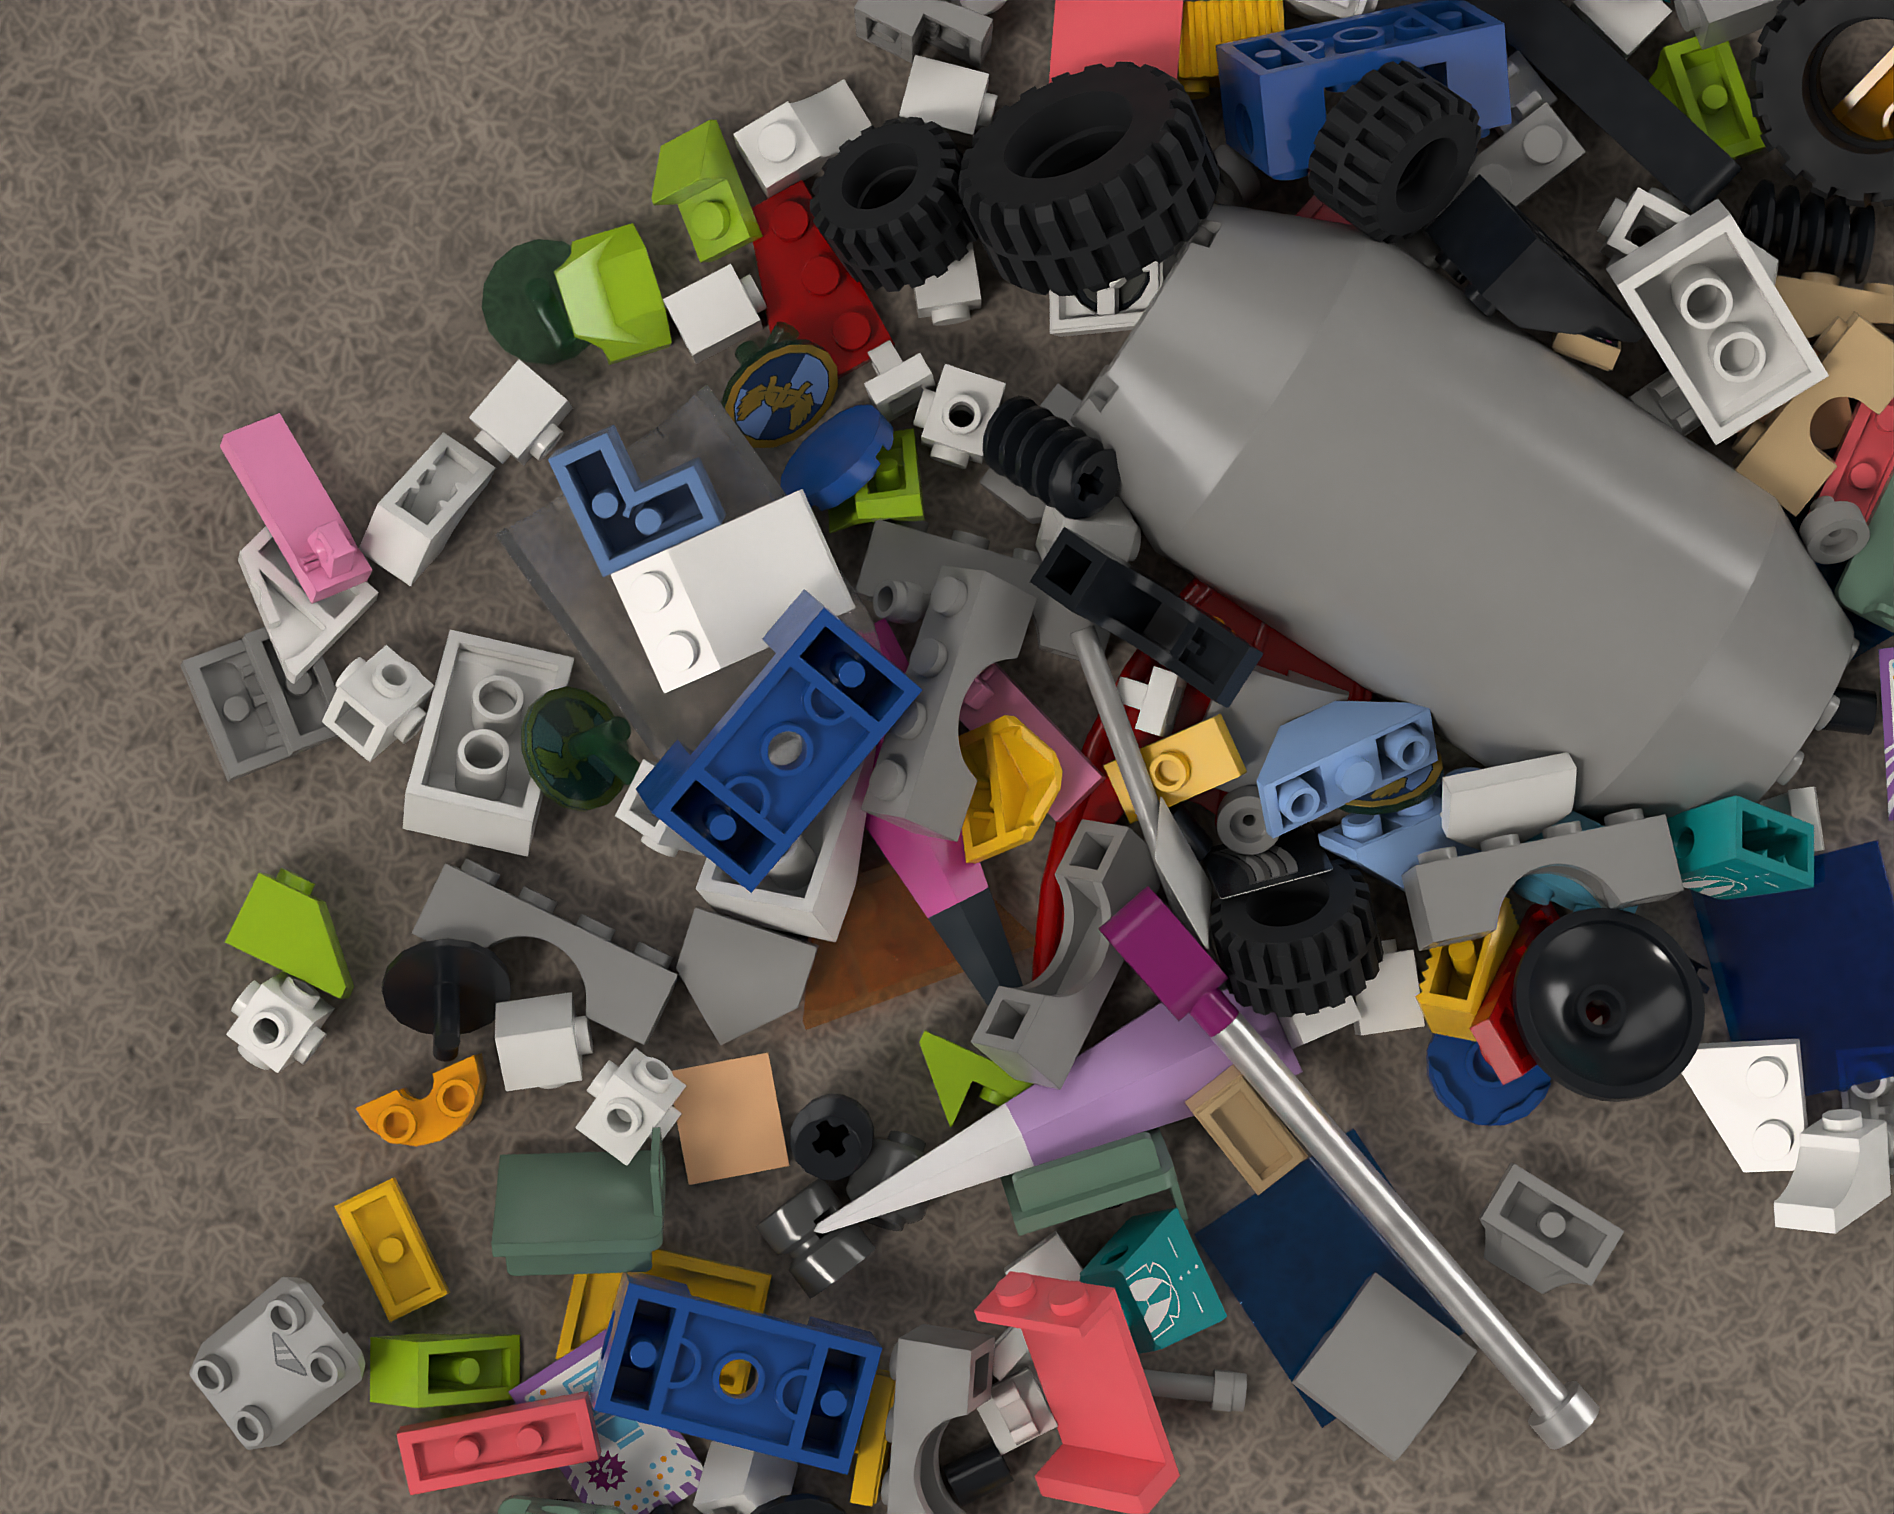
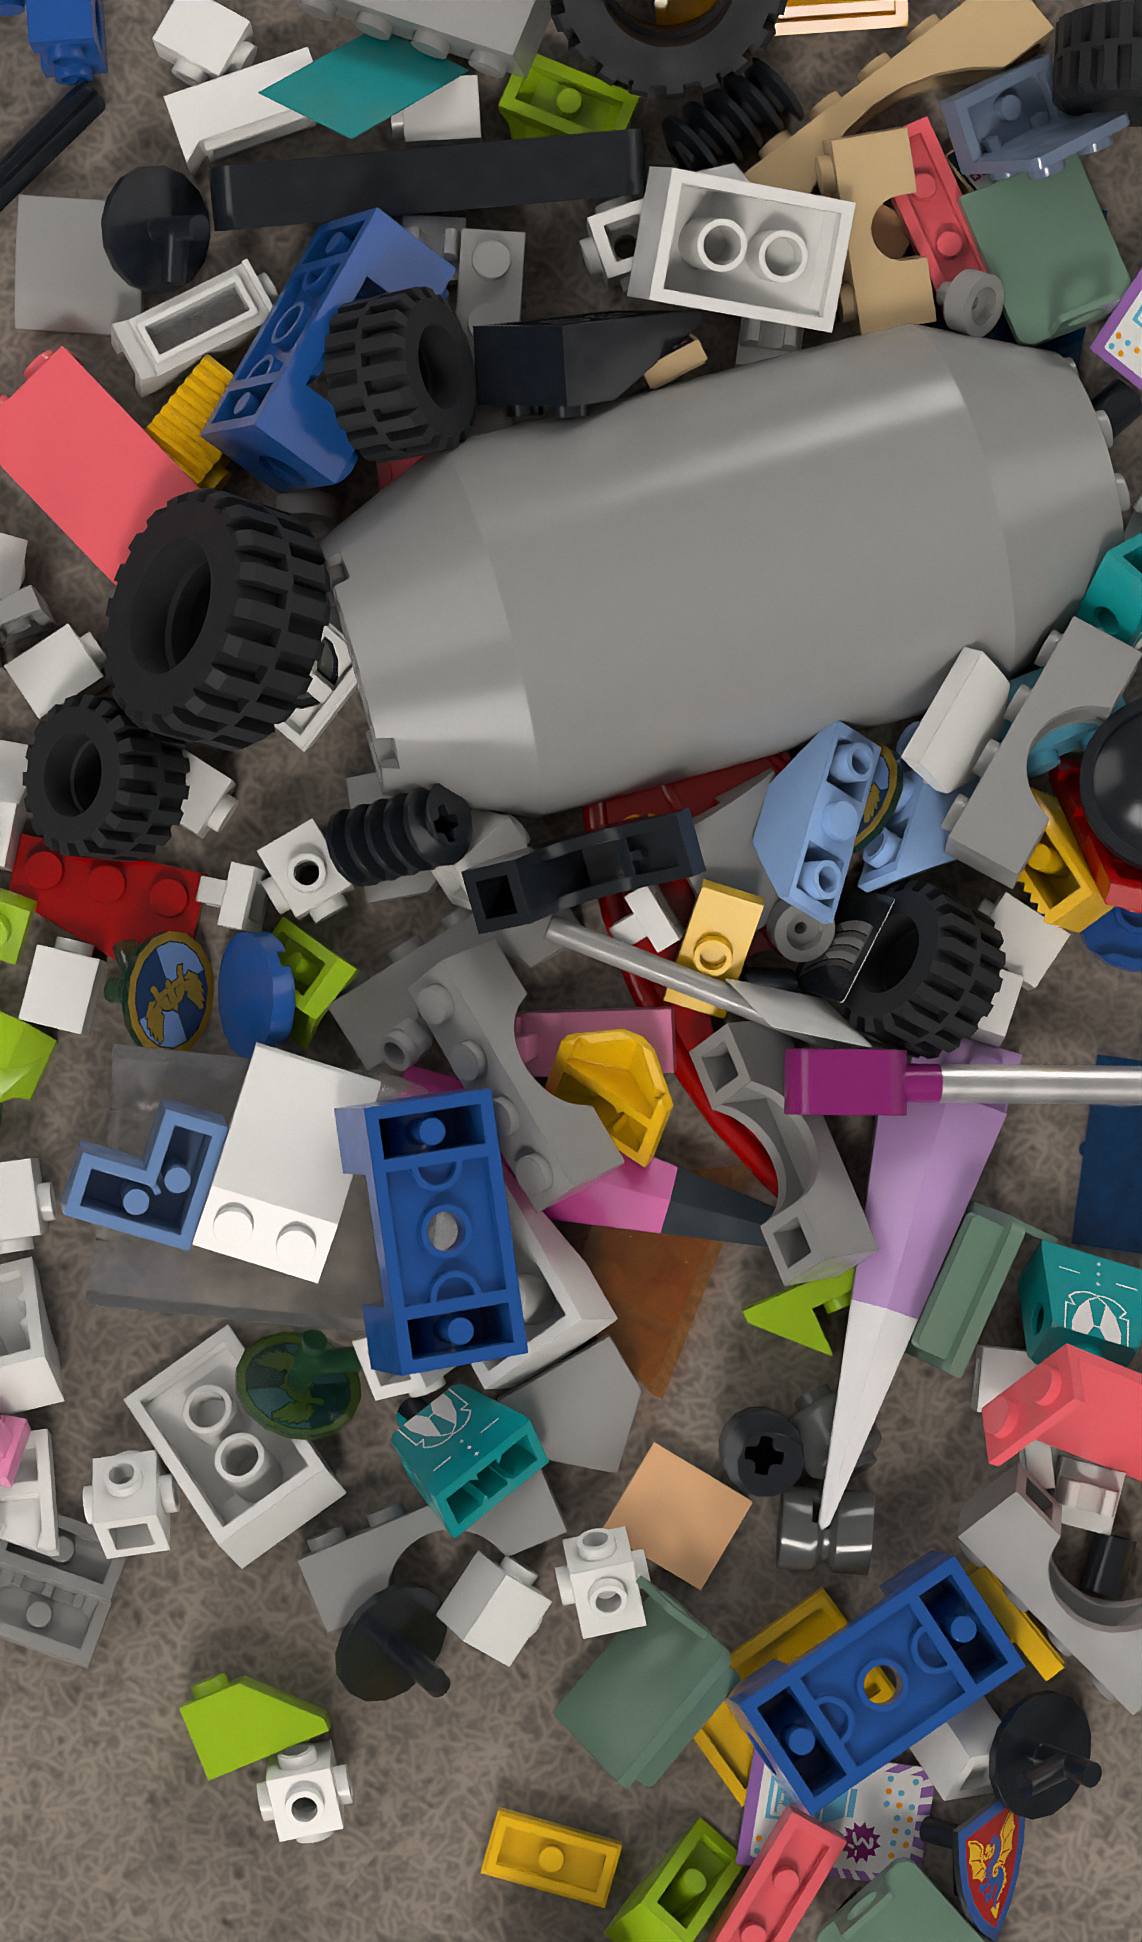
camera: 45 degrees left, 0 degrees up
(441, 1114) = (473, 1752): light orange cylinder -> none
(635, 917) = (465, 1453): none -> teal torso
(1246, 1129) = (1029, 1135): tan tile -> none

